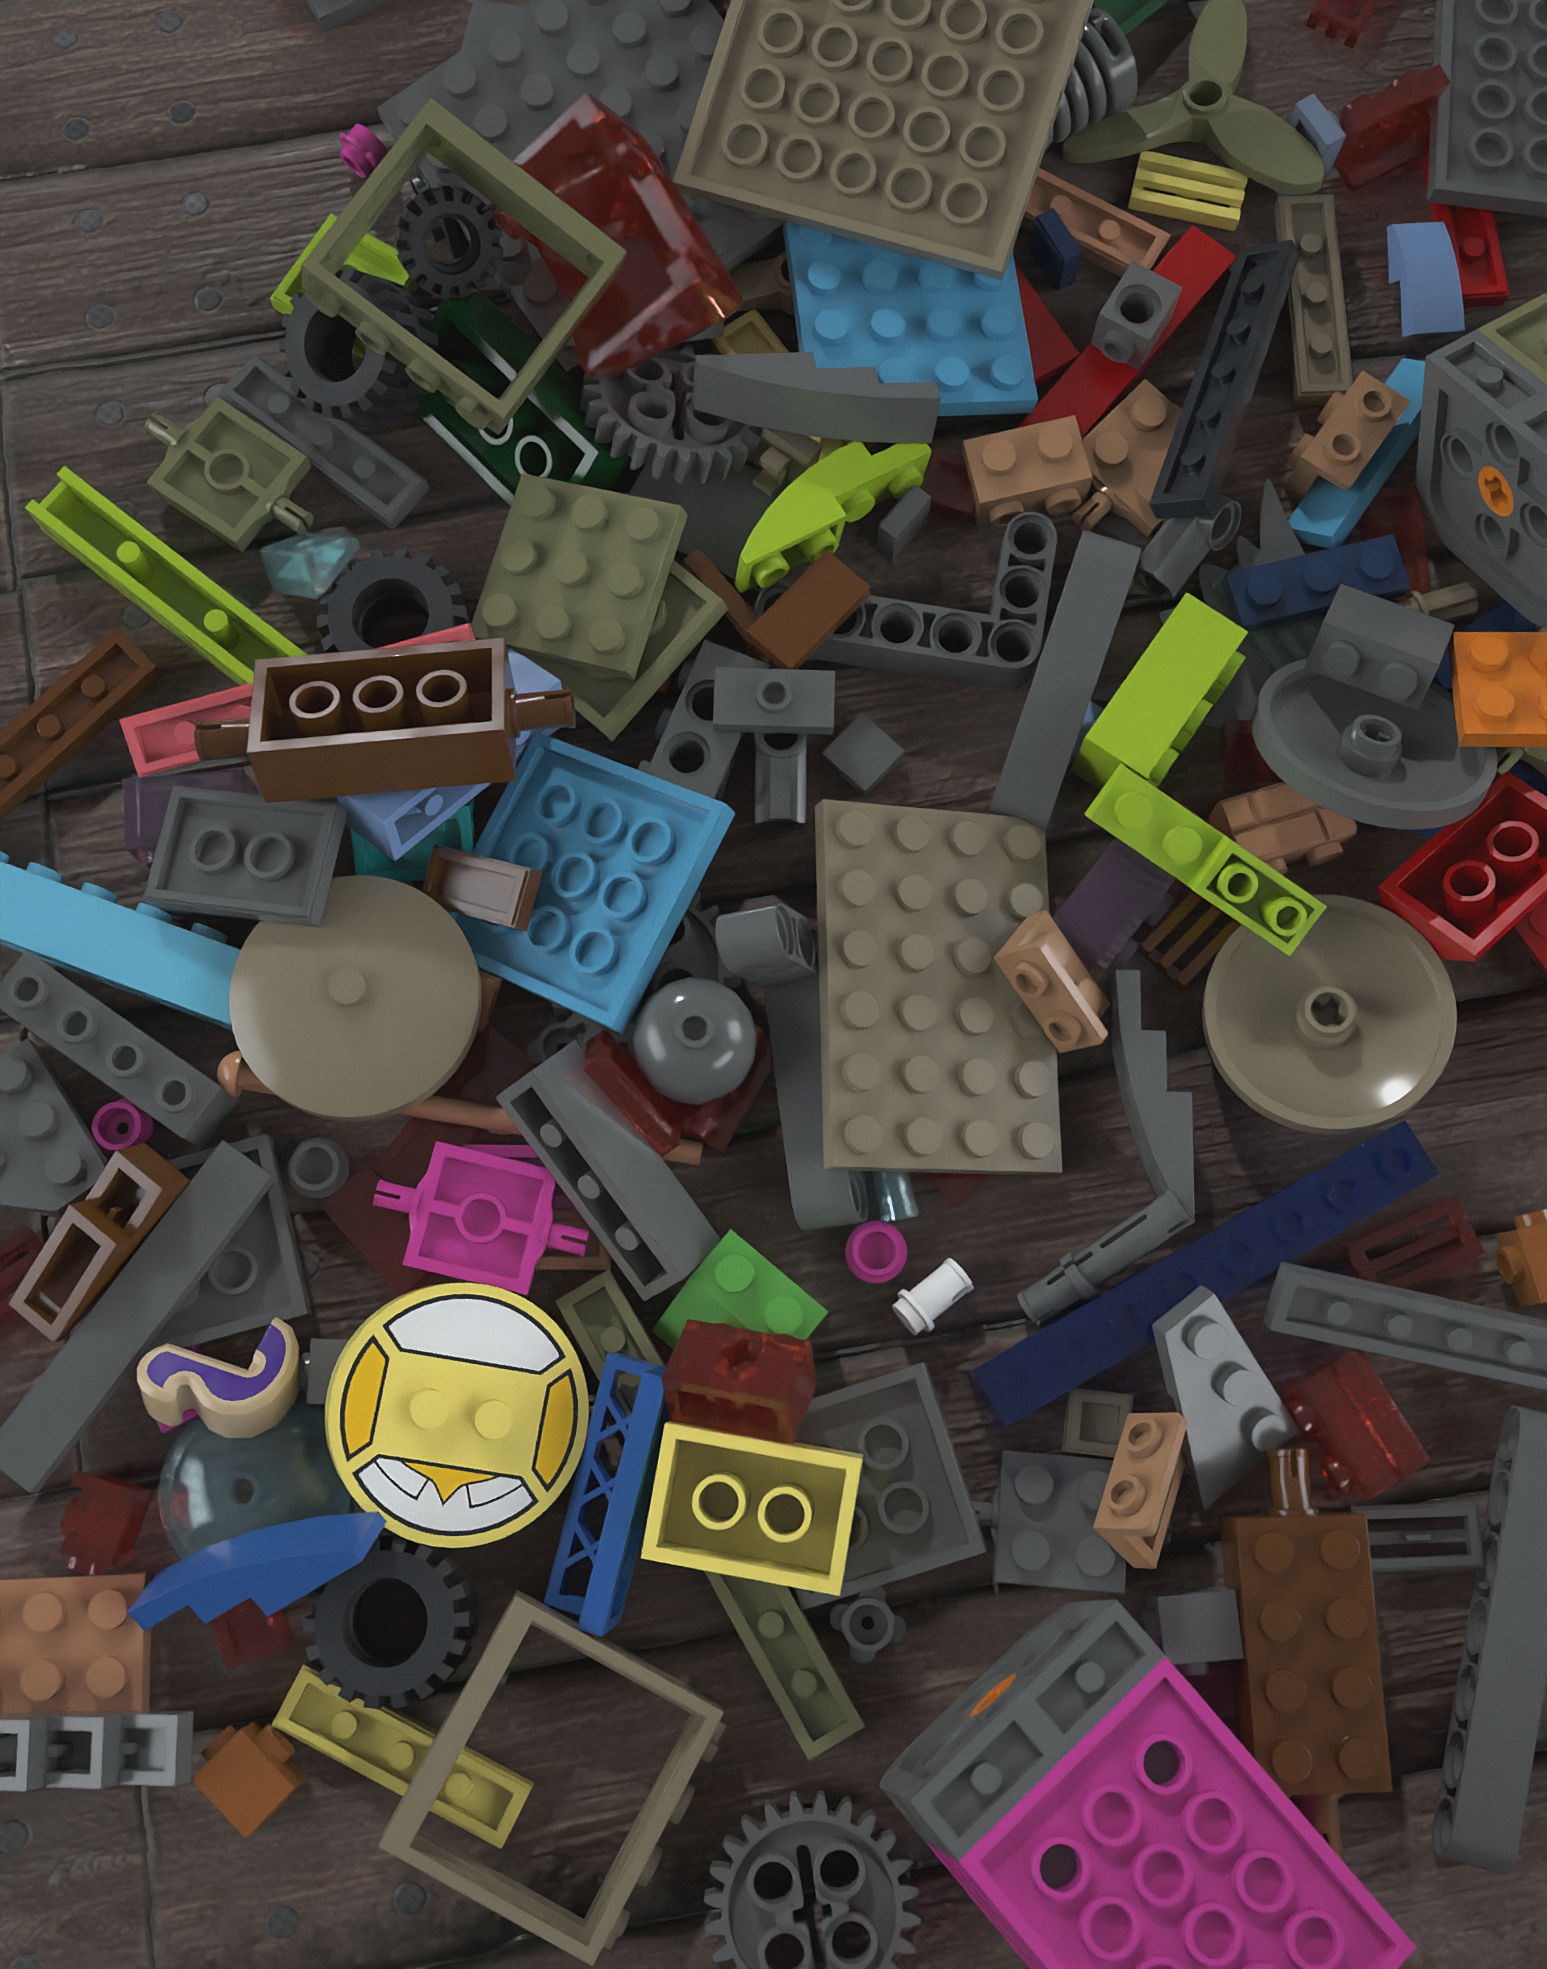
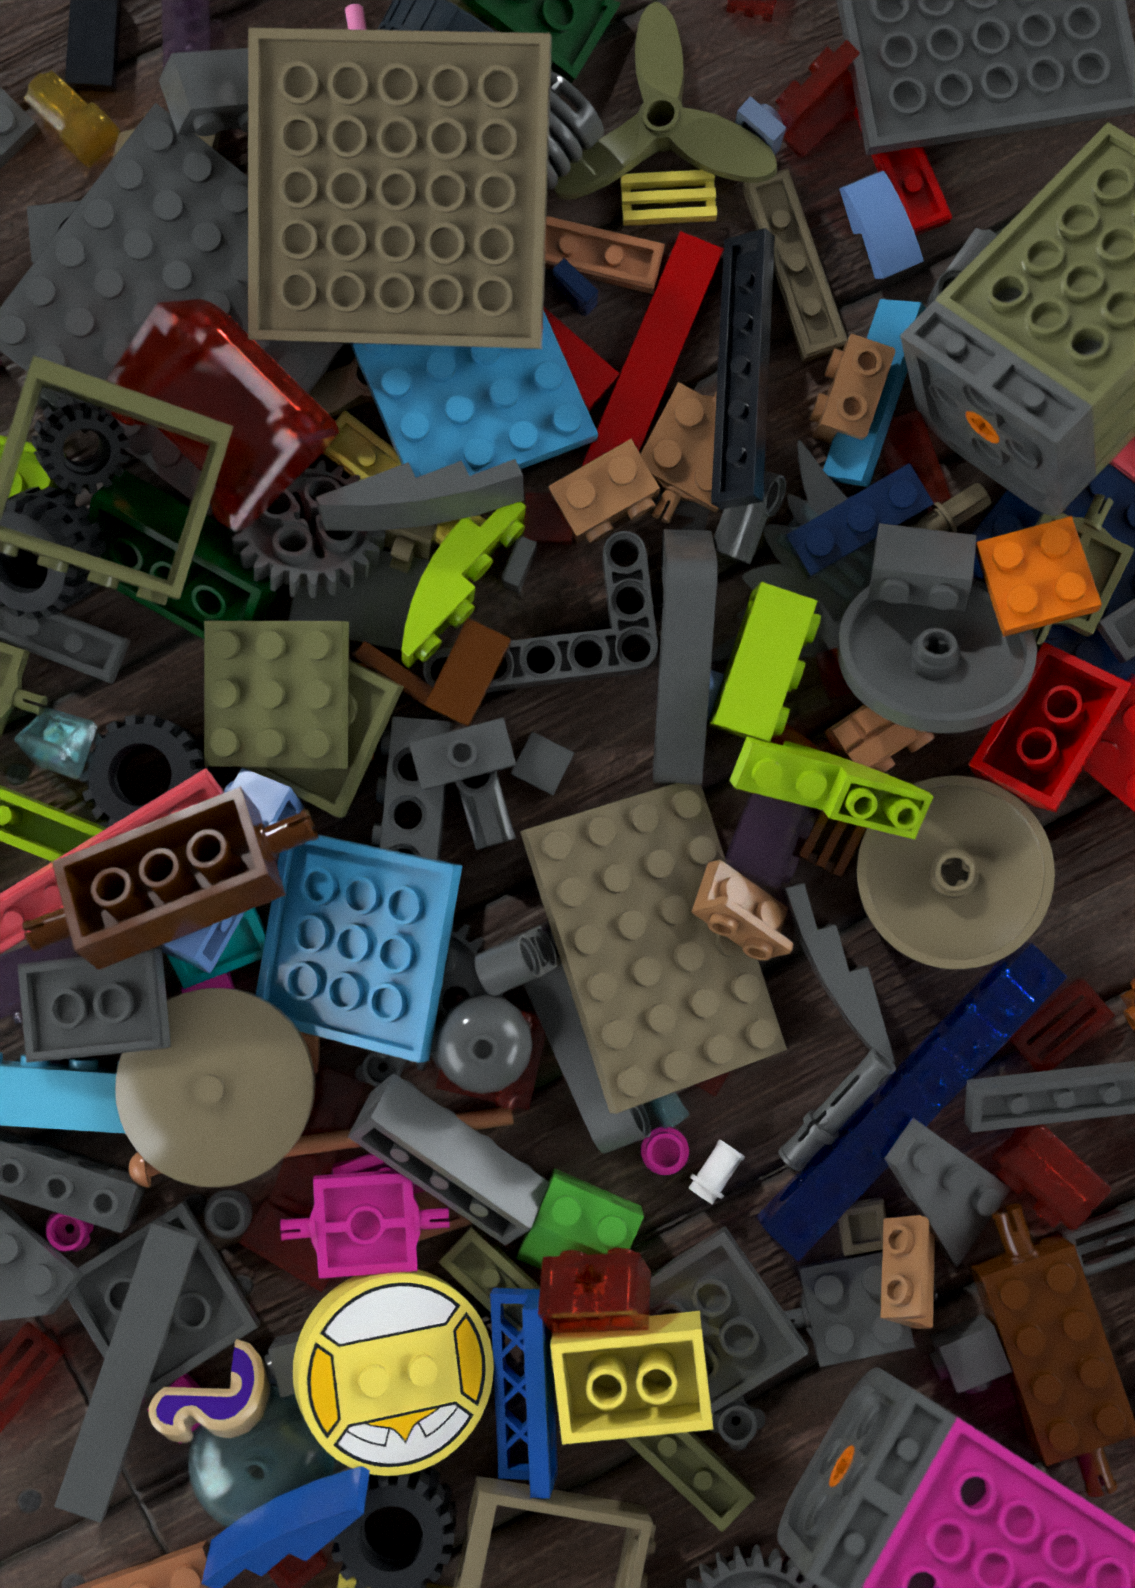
camera: 20 degrees left, 10 degrees up
(97, 1240) = (85, 1325): reddish brown slope -> none
(103, 1522) = (159, 1520): clear red brick -> none
(481, 886) = (282, 971): tile -> none
(631, 1093) = (435, 1092): clear red tile -> none
(1140, 296) = (662, 316): dark grey brick -> none

